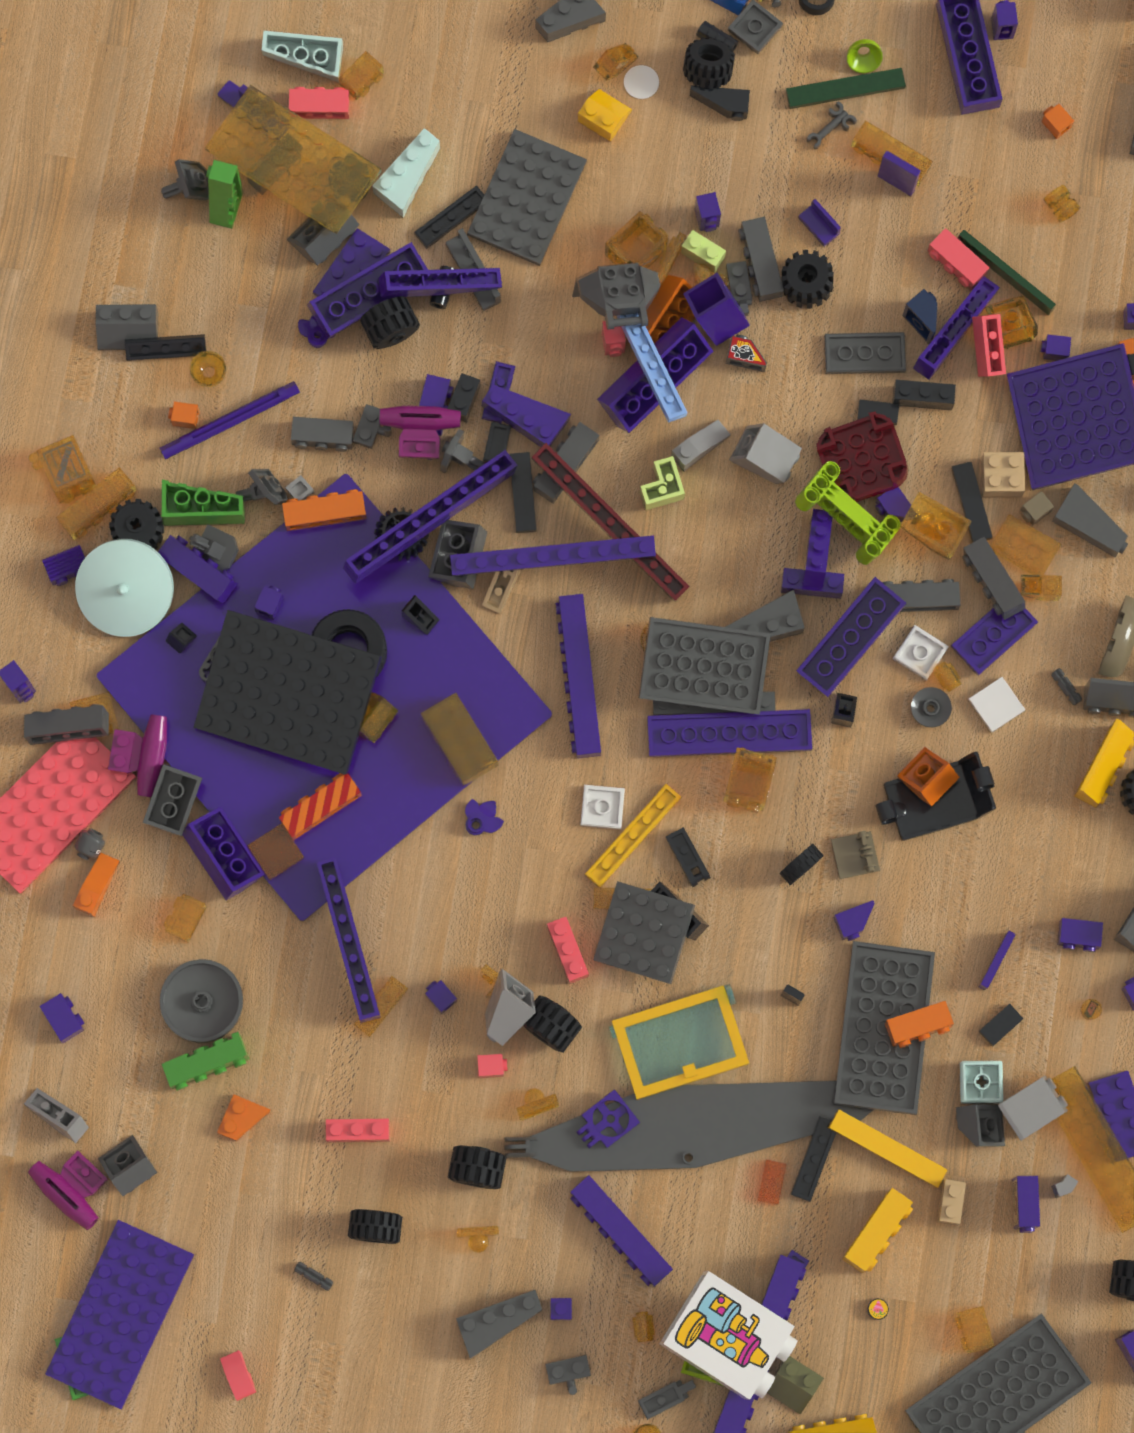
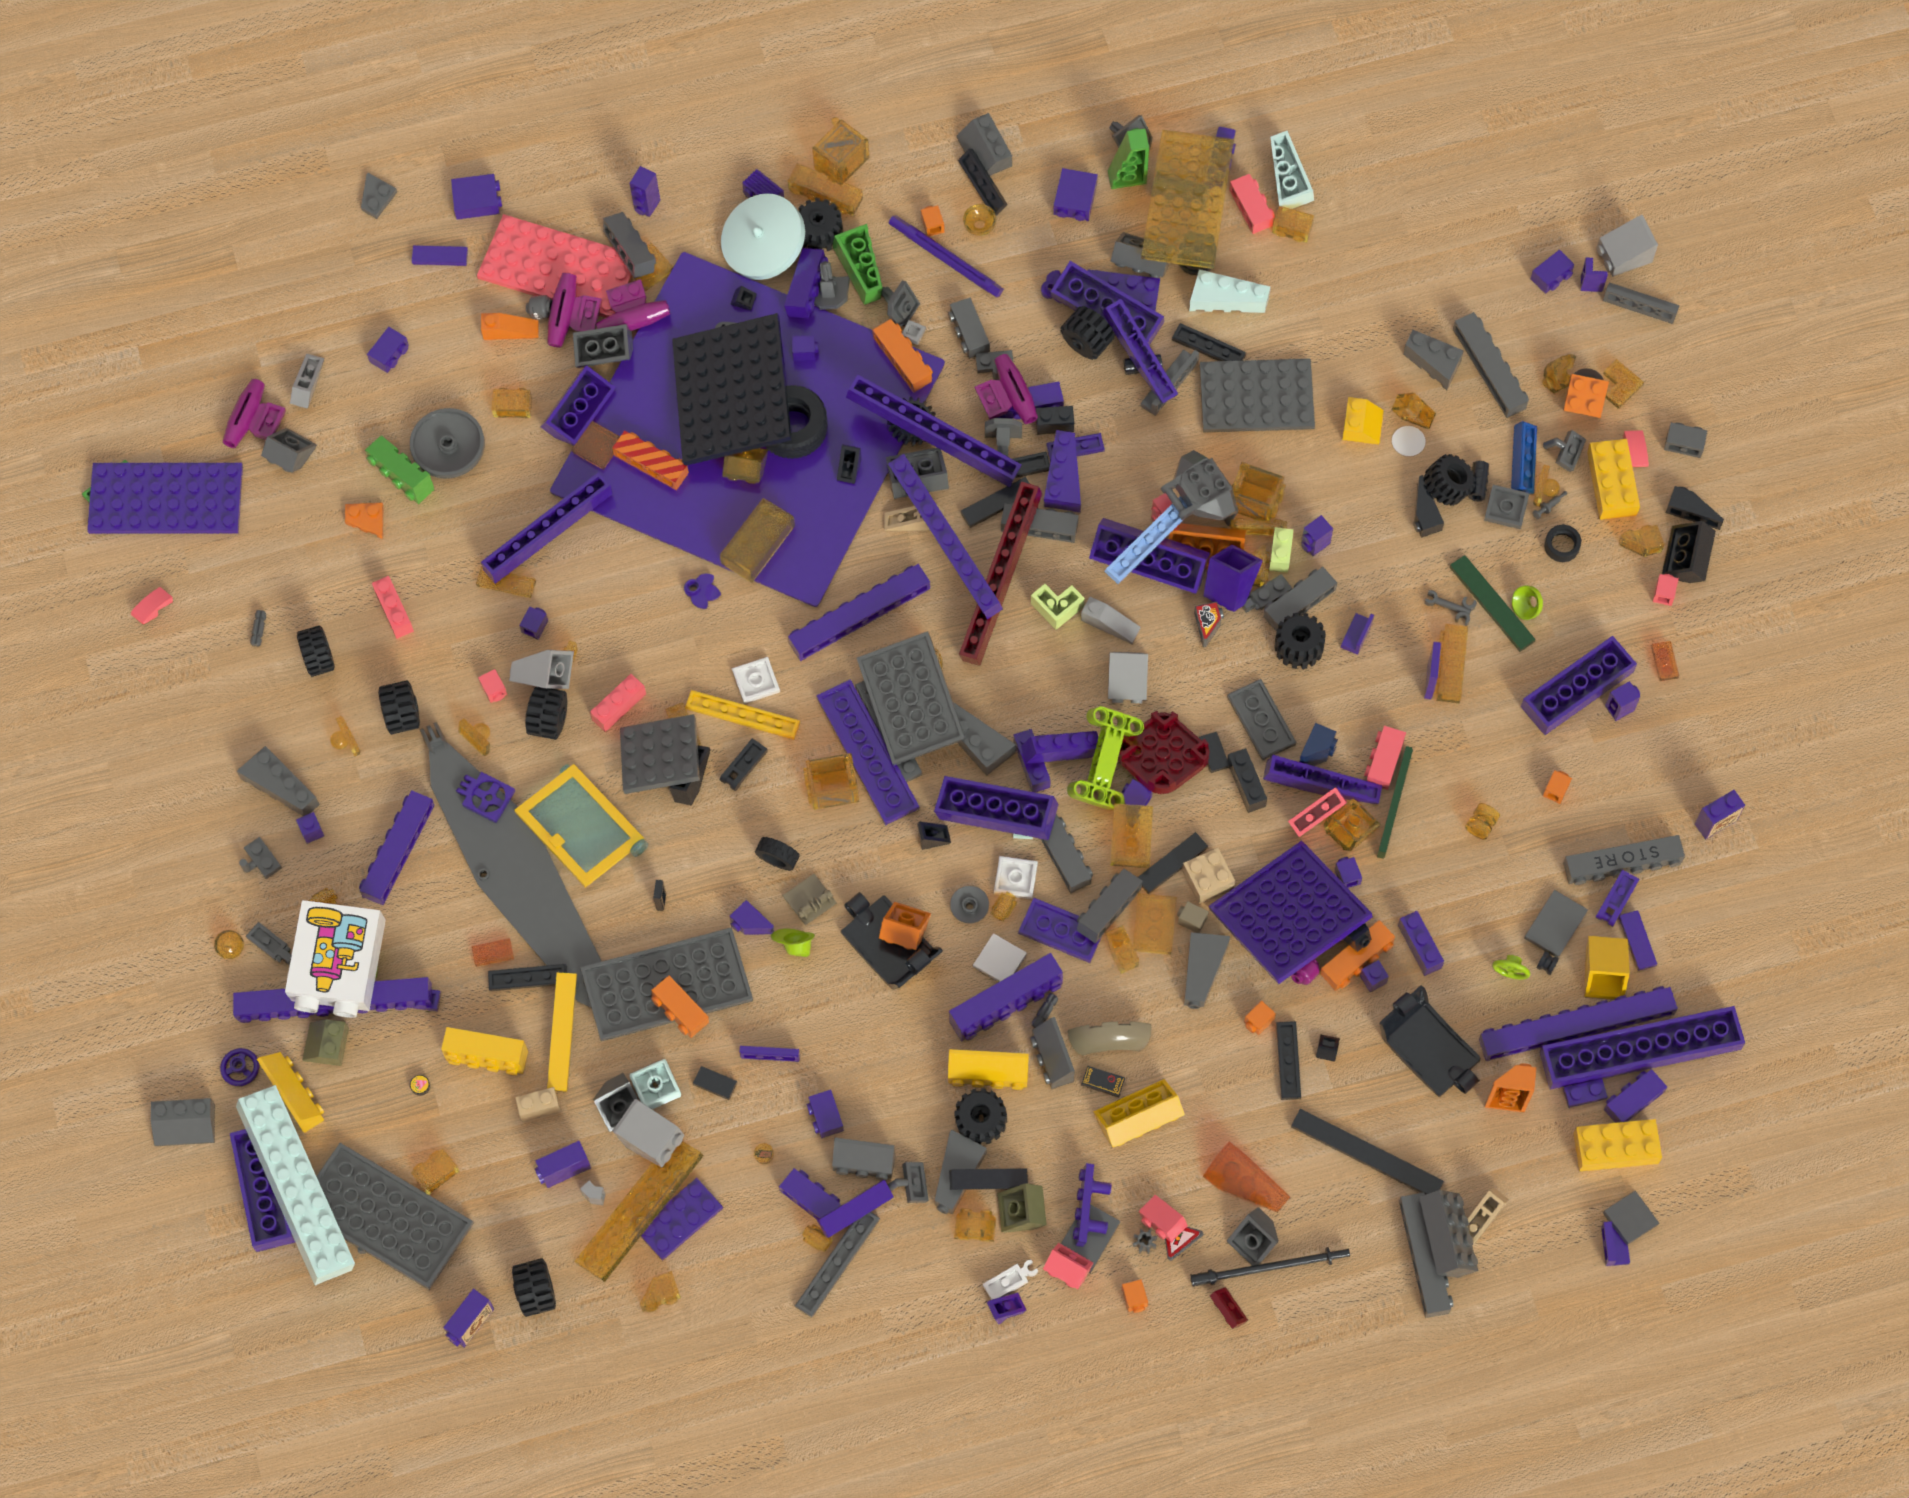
camera: 70 degrees right, 10 degrees down
(113, 814) = (570, 311): none -> magenta plate
(225, 265) = (1075, 194): none -> dark purple brick
(893, 887) = (794, 941): none -> lime piece
(1043, 714) = (1006, 997): none -> dark purple brick

